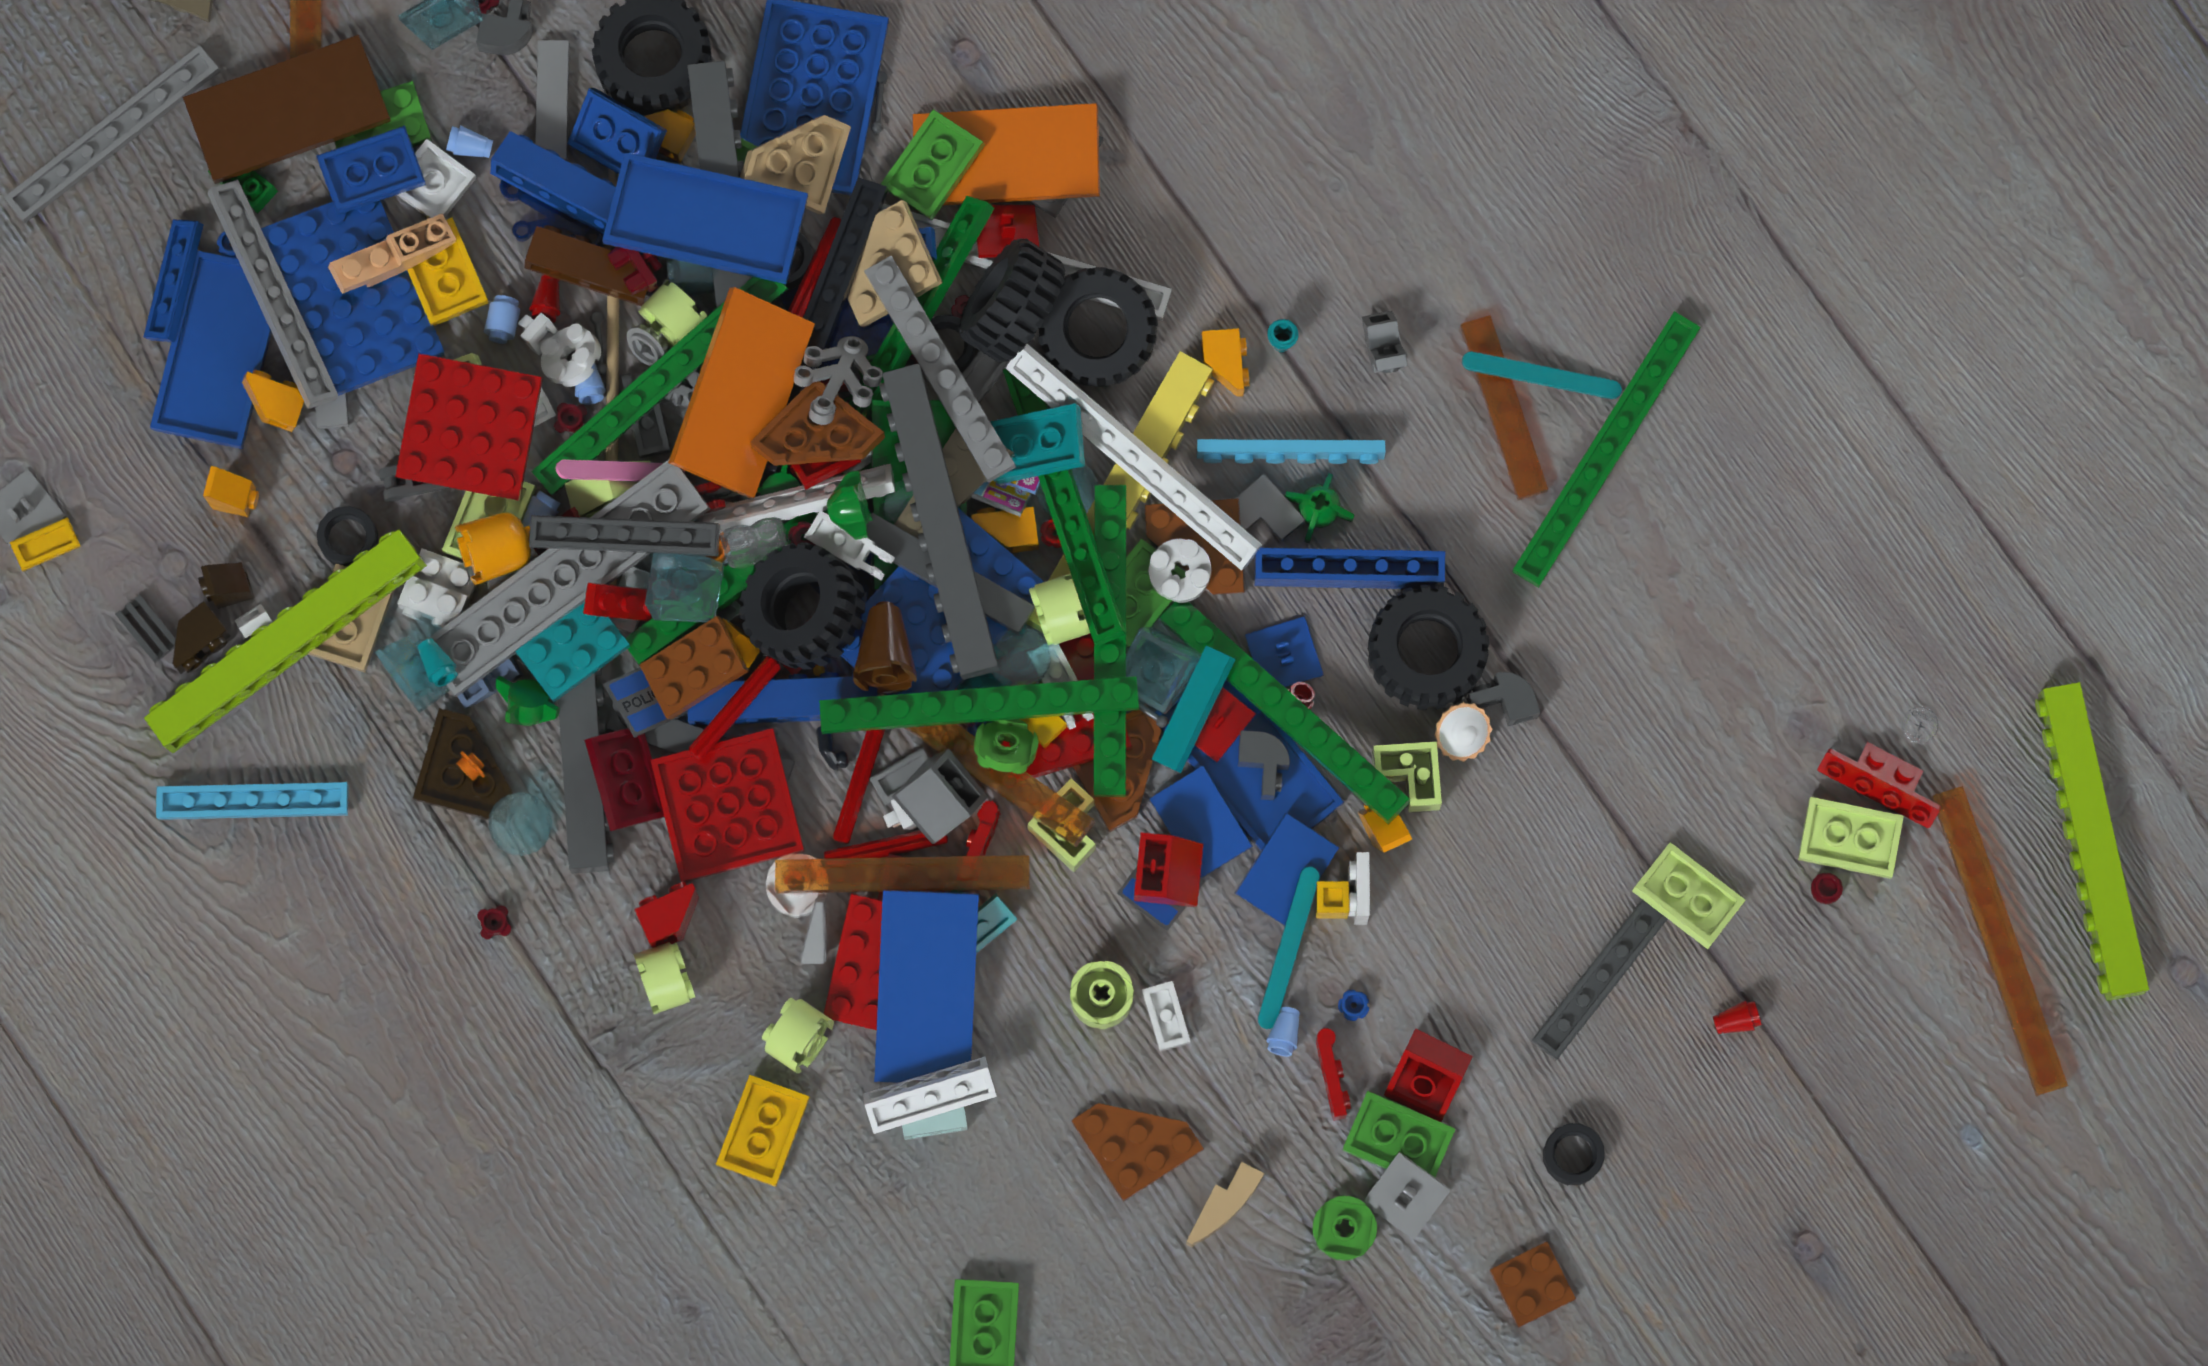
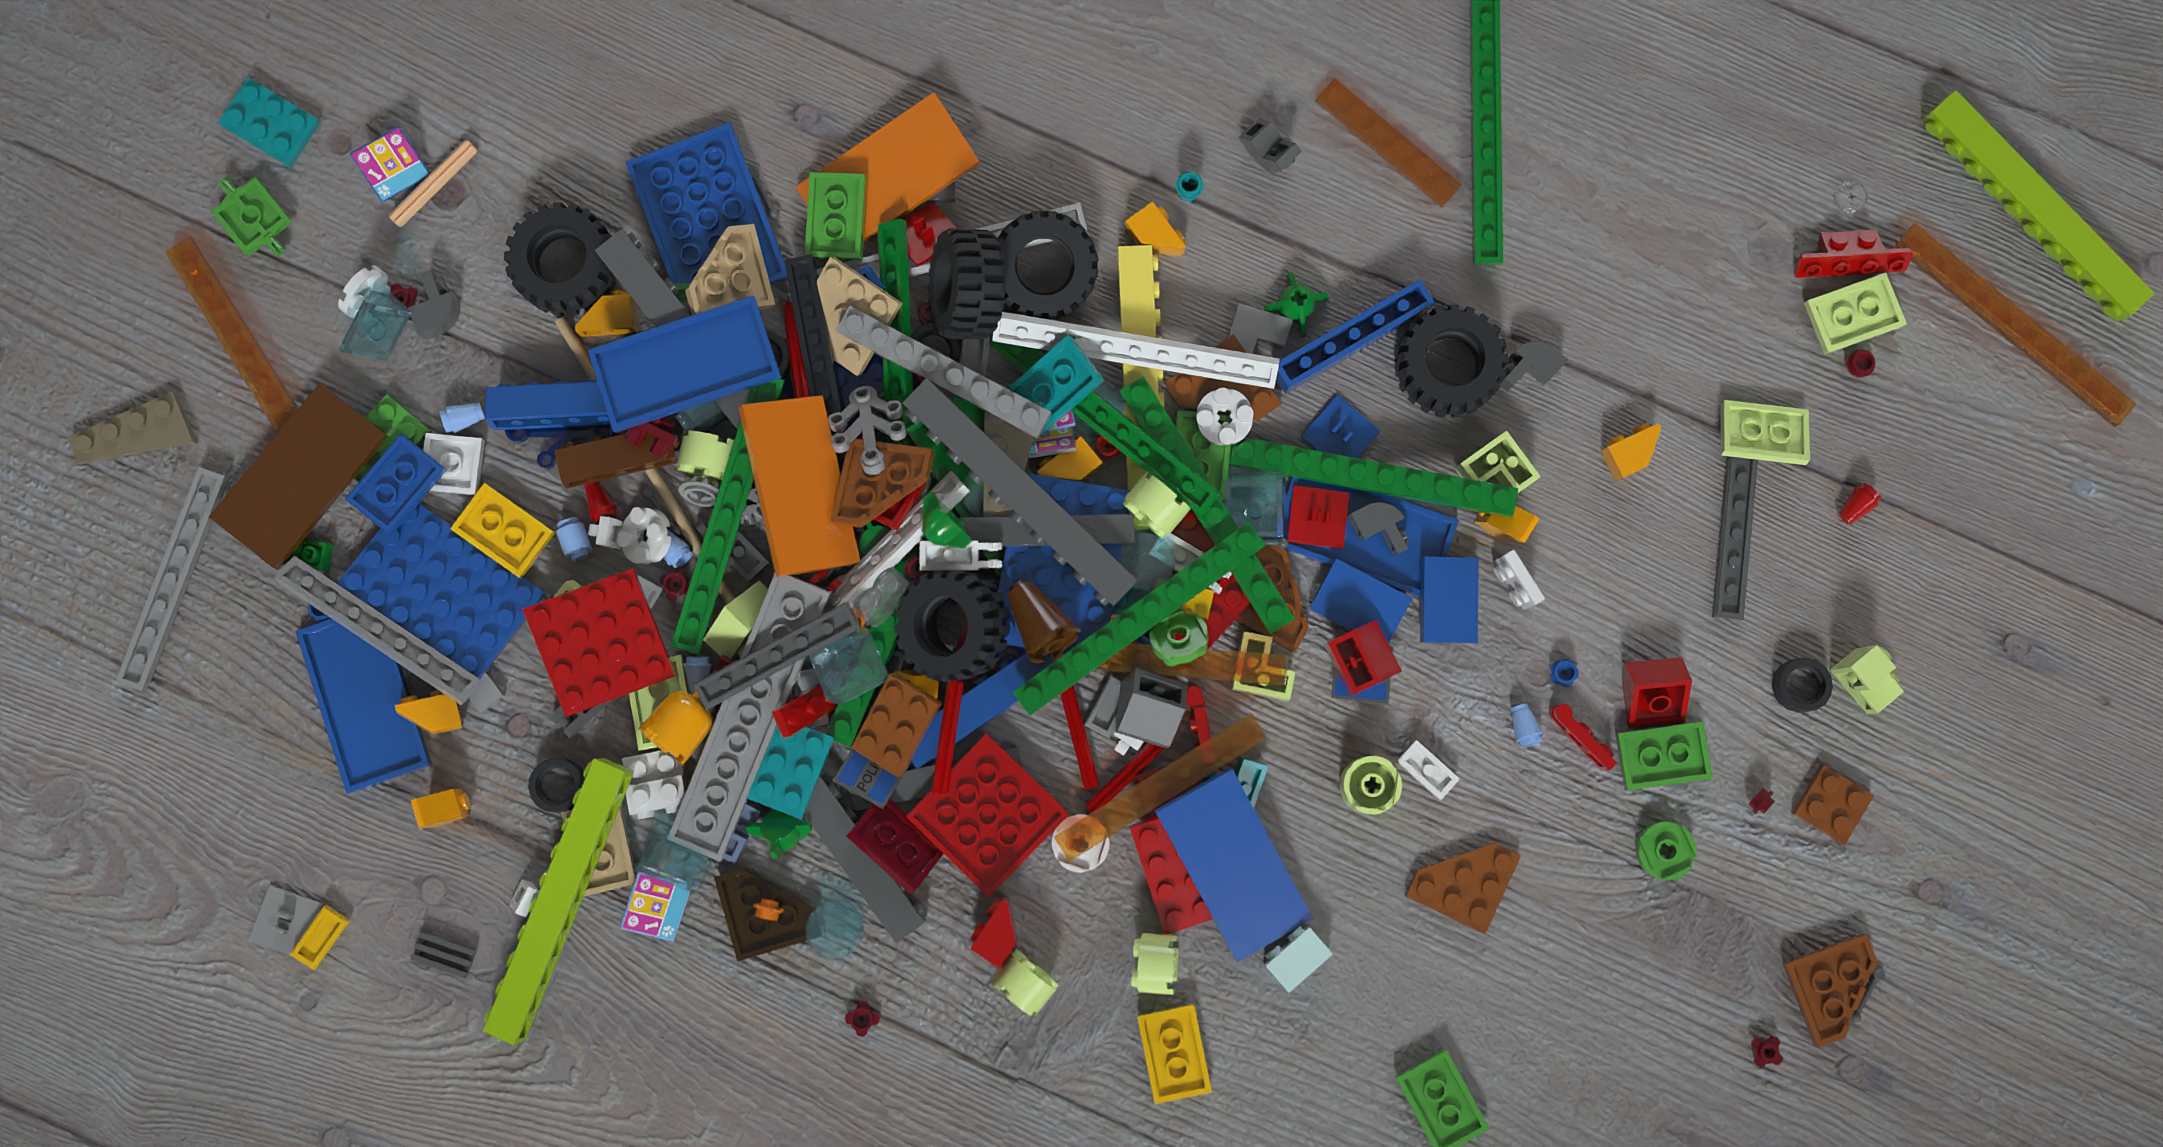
camera: 30 degrees left, 5 degrees up
(173, 280) = (293, 665): blue tile -> none
(196, 636) = (485, 938): dark brown slope -> none
(225, 584) = (483, 883): dark brown slope -> none
(252, 801) = (611, 1041): medium azure plate -> none
(369, 702) = (654, 908): none -> piece
(394, 255) = (455, 541): light nougat slope -> none
(437, 663) = (690, 846): teal cone -> none
(552, 95) = (505, 340): light grey tile -> none
(605, 470) = (729, 612): bright pink piece -> none
(610, 129) = (565, 338): blue tile -> none
(815, 943) = (1123, 881): light grey slope -> none
(827, 750) = (1038, 723): black arm -> none
(929, 1095) = (1290, 949): white fence -> none
(1193, 709) = (1303, 519): teal tile -> none
(1225, 1204) = (1565, 890): tan slope -> none
(1278, 450) = (1258, 267): medium azure plate -> none
(1288, 947) = (1487, 659): teal piece -> none
(1303, 692) = (1376, 454): plate -> none
(1332, 899) = (1500, 601): yellow panel -> none
(1406, 1195) = (1698, 796): light grey piece -> none
(1463, 731) = (1516, 410): white piece -> none
(1464, 1238) = (1762, 801): none -> dark red plate
(1541, 375) = (1402, 100): teal piece -> none
(1548, 838) = (1633, 452): none -> light orange slope
(1637, 1184) = (1869, 678): none -> yellowish green brick

